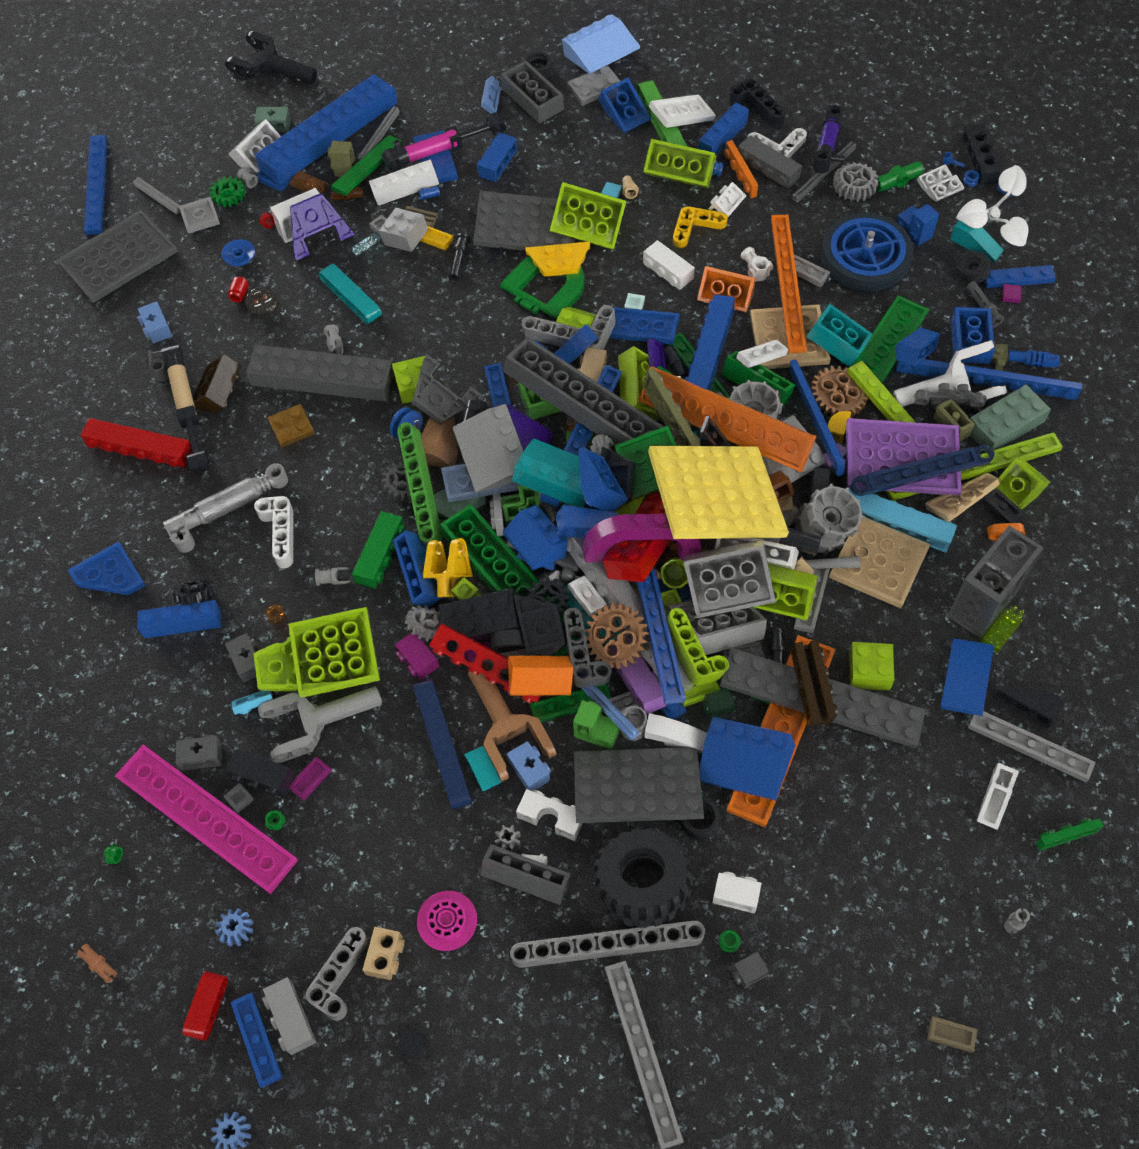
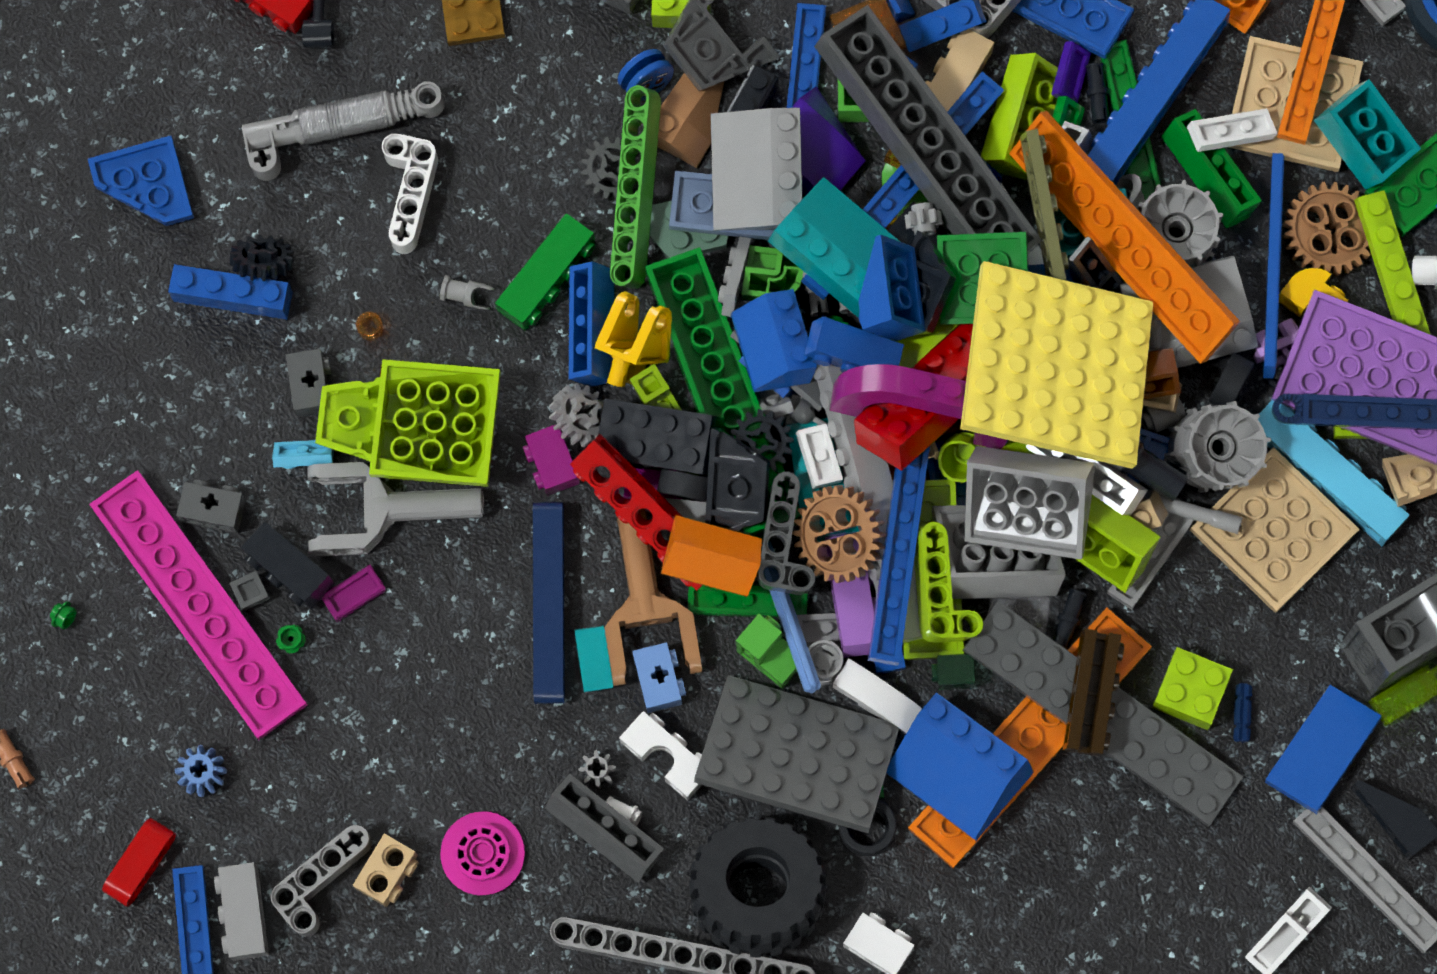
camera: 20 degrees right, 15 degrees up
(907, 672) = (1242, 712): none -> dark blue axle

